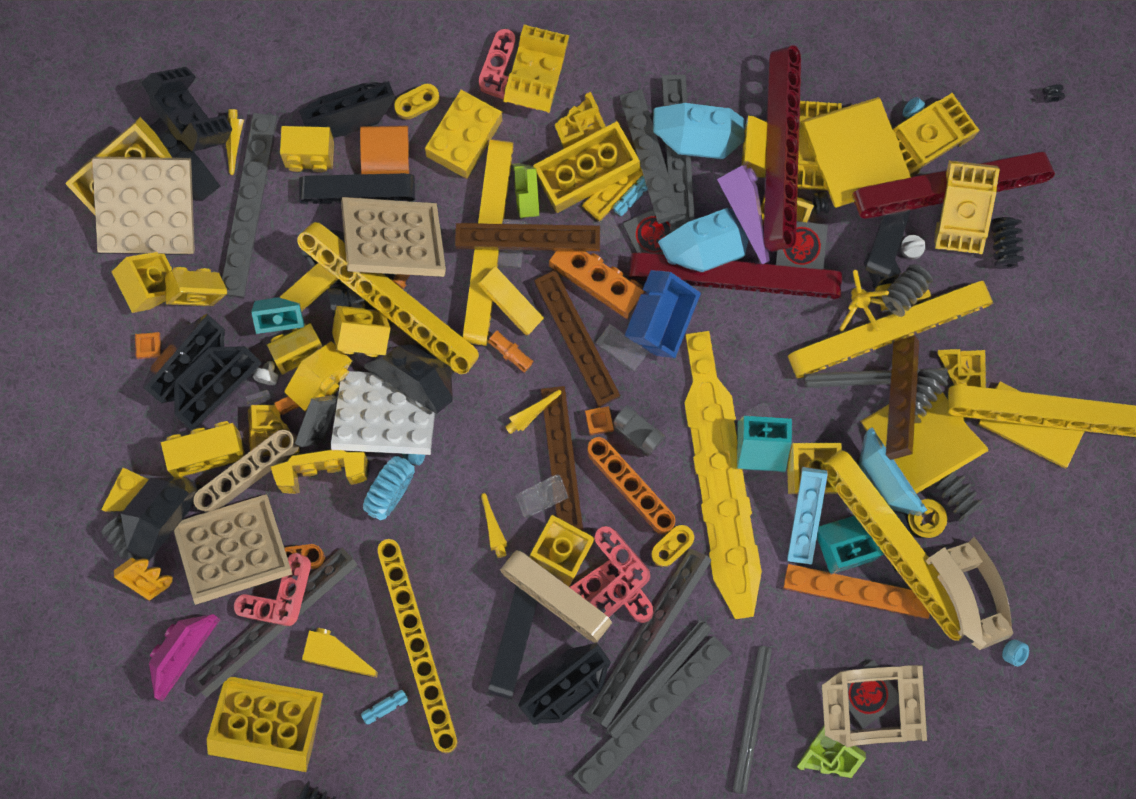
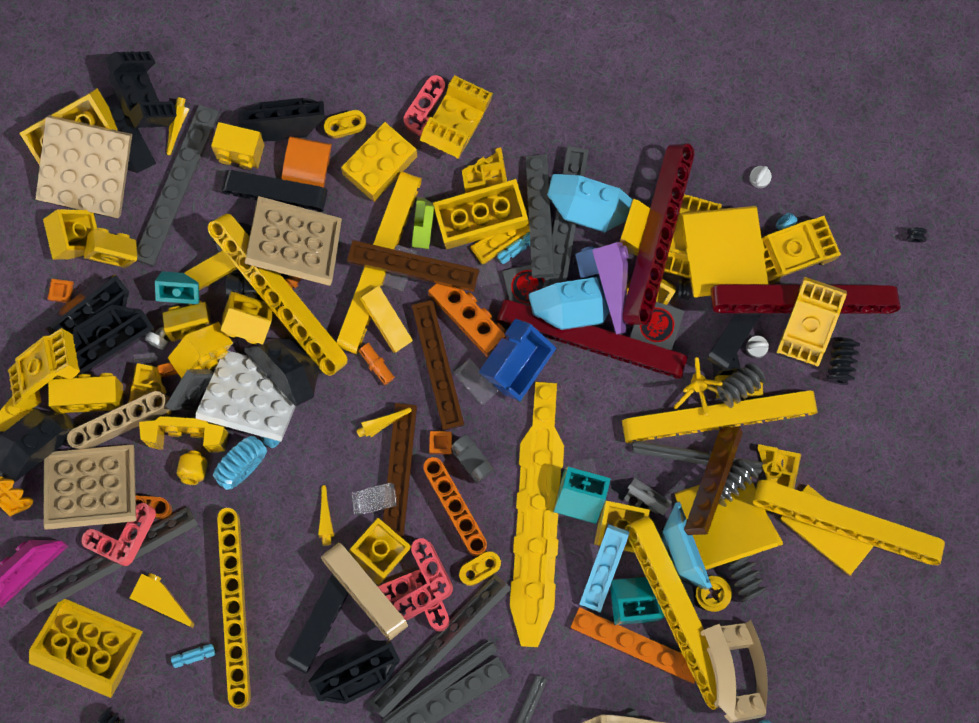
camera: 15 degrees right, 0 degrees up
(147, 429) = (39, 365): none -> yellow plate
(336, 505) = (192, 468): none -> yellow head
(713, 195) = (587, 264): none -> medium blue brick
(842, 433) = (656, 502): none -> light grey plate
(874, 66) = (760, 176): none -> white tile

